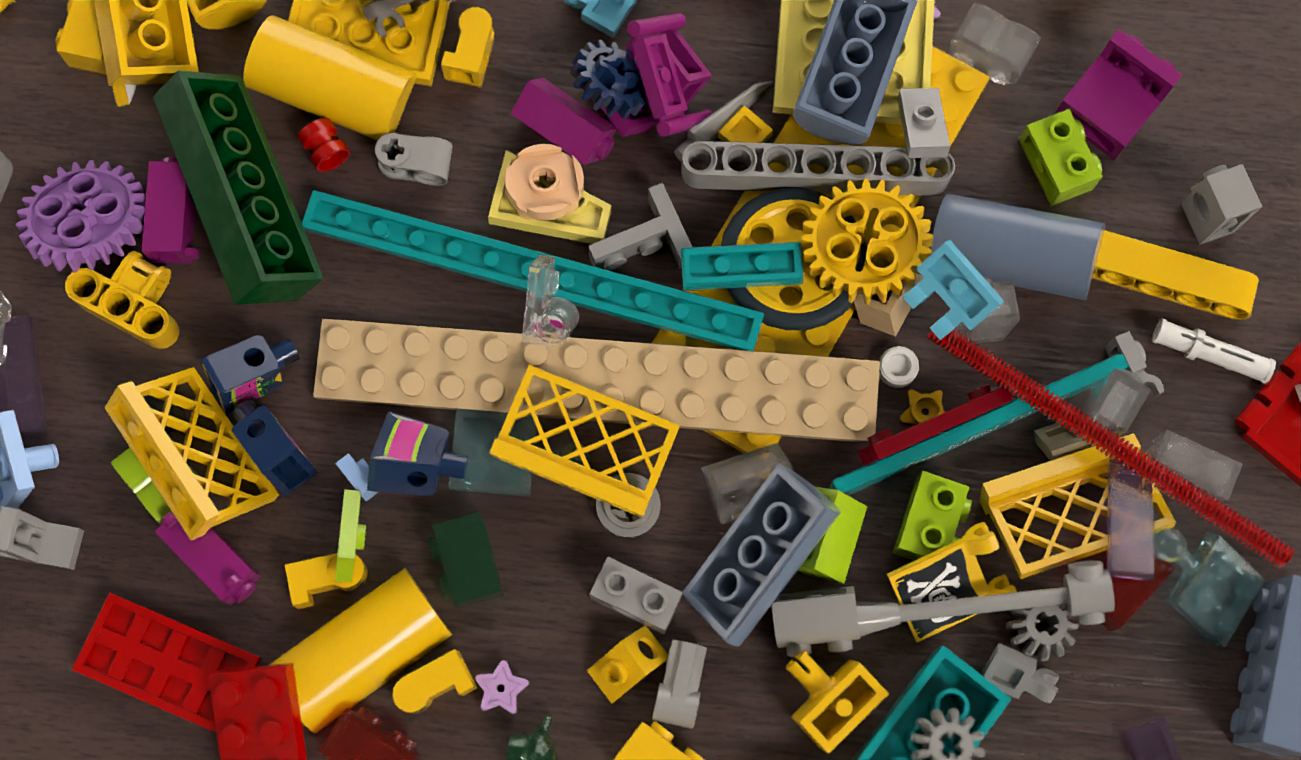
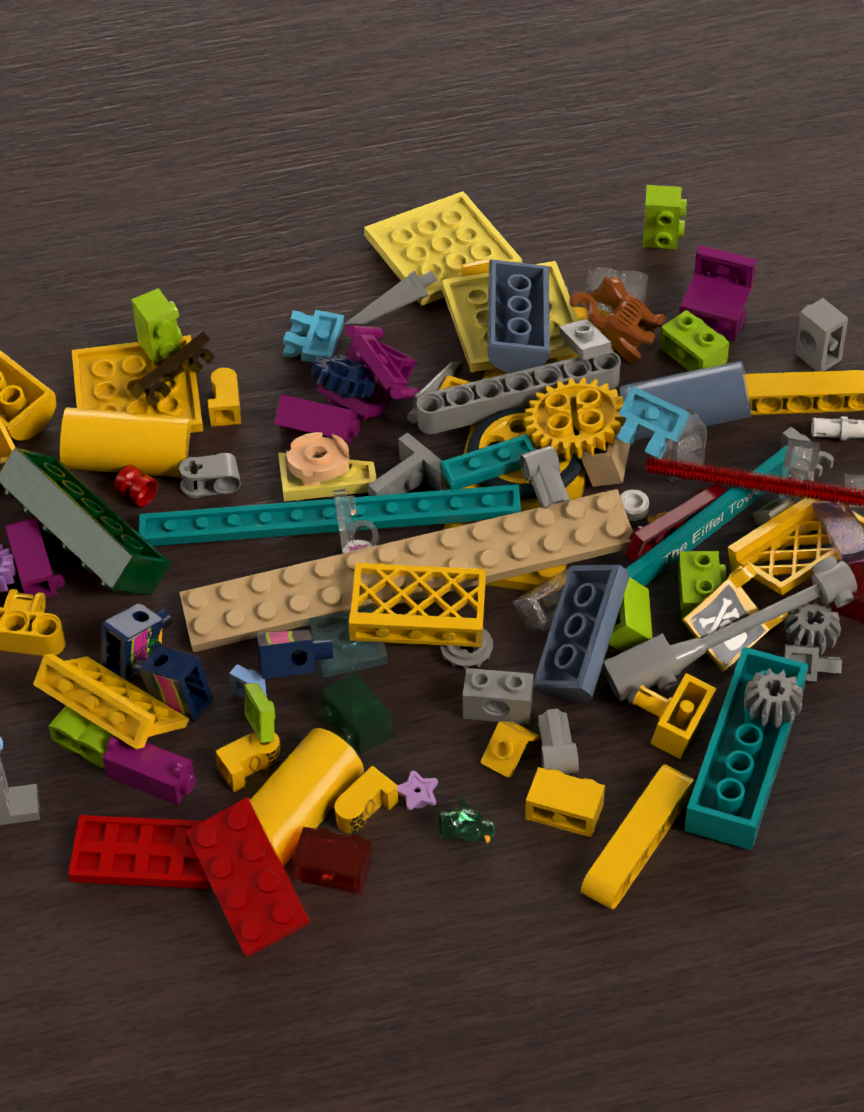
camera: 15 degrees left, 25 degrees down
(797, 305) = (543, 471): none -> light grey piece
(991, 92) = (628, 322): none -> dark orange animal

